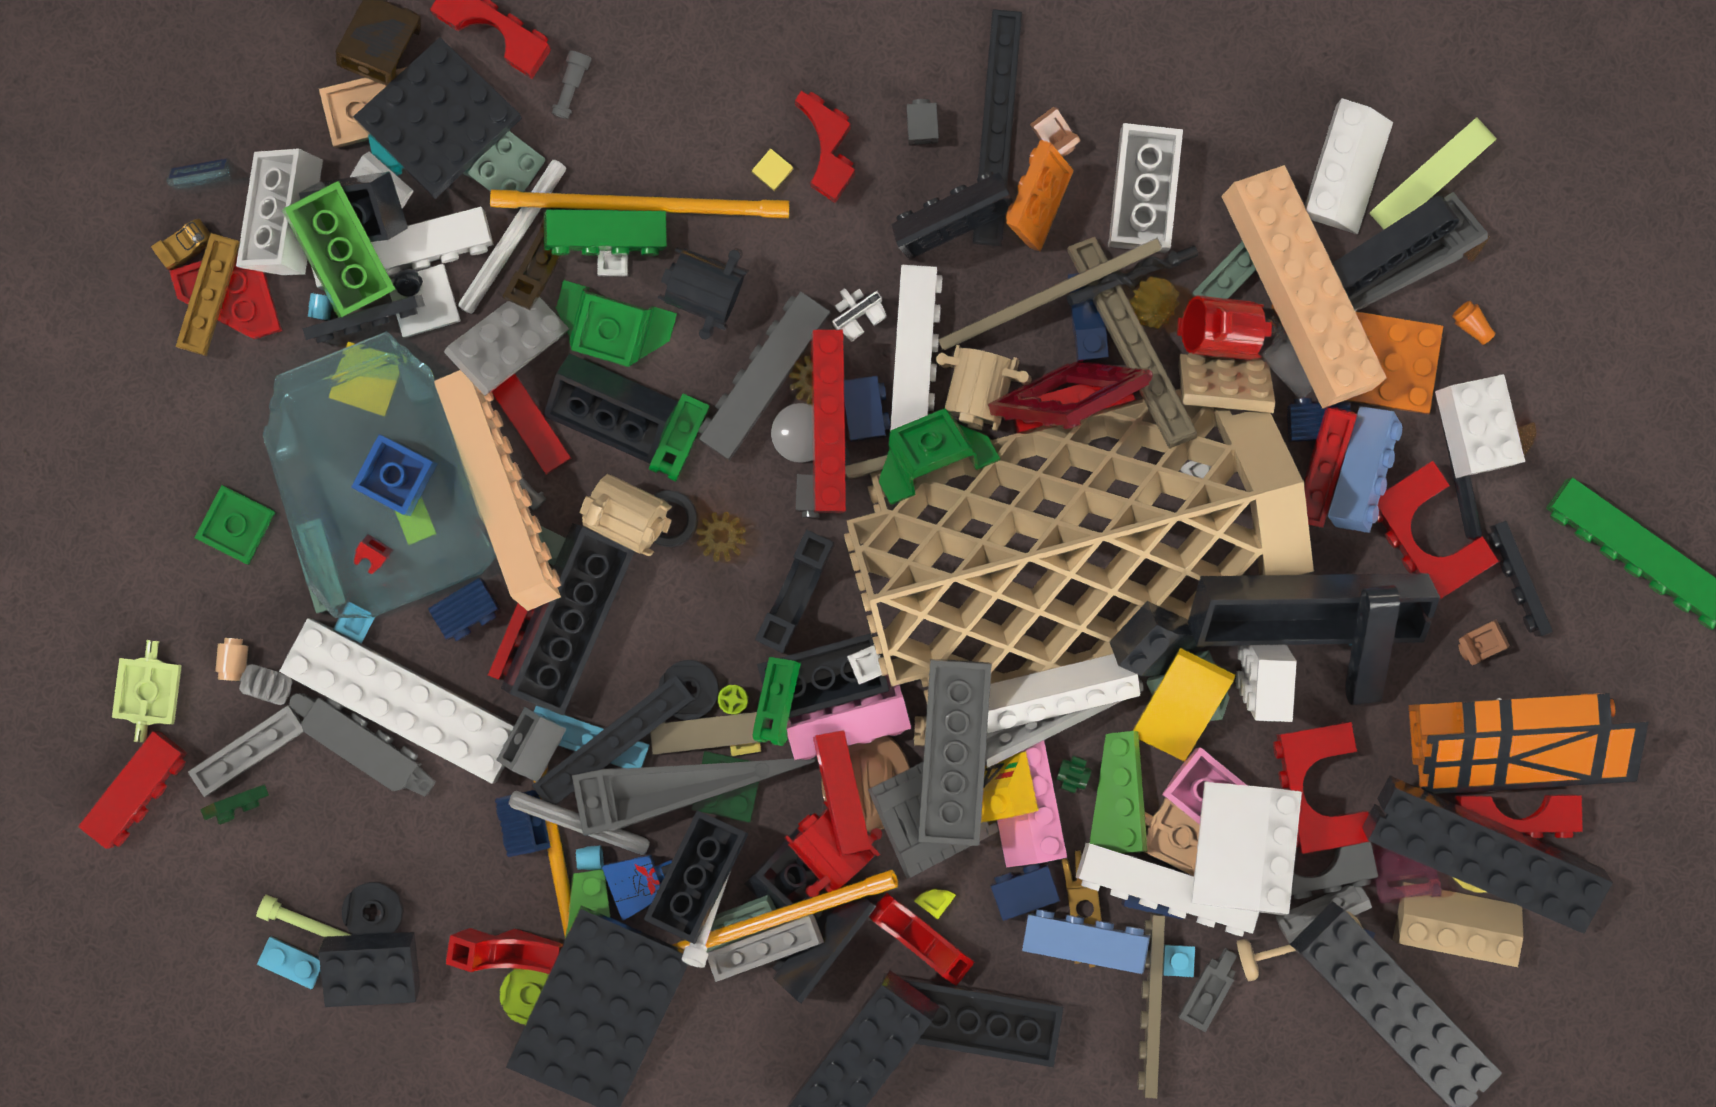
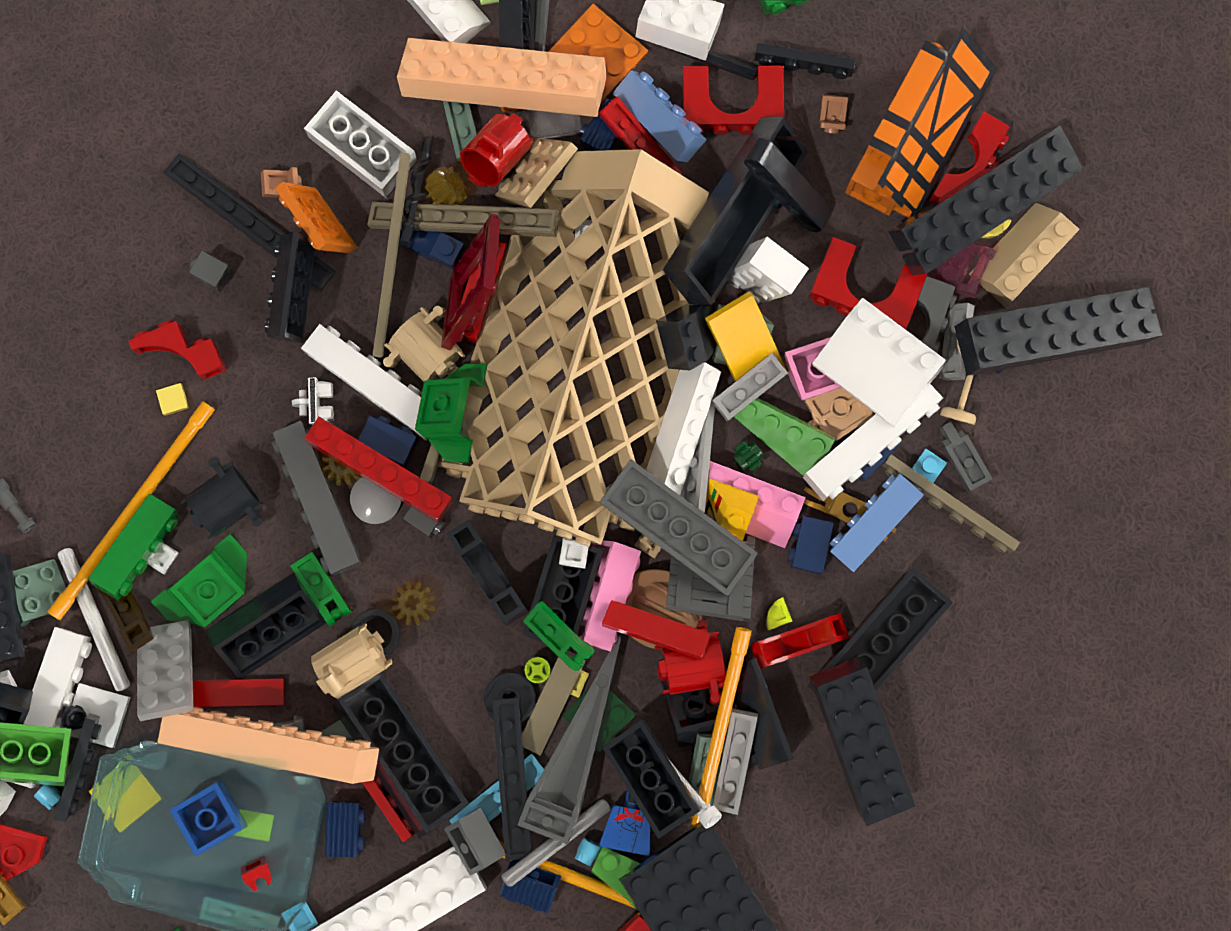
camera: 60 degrees left, 5 degrees down
(1143, 733) = (749, 387): none -> light grey plate

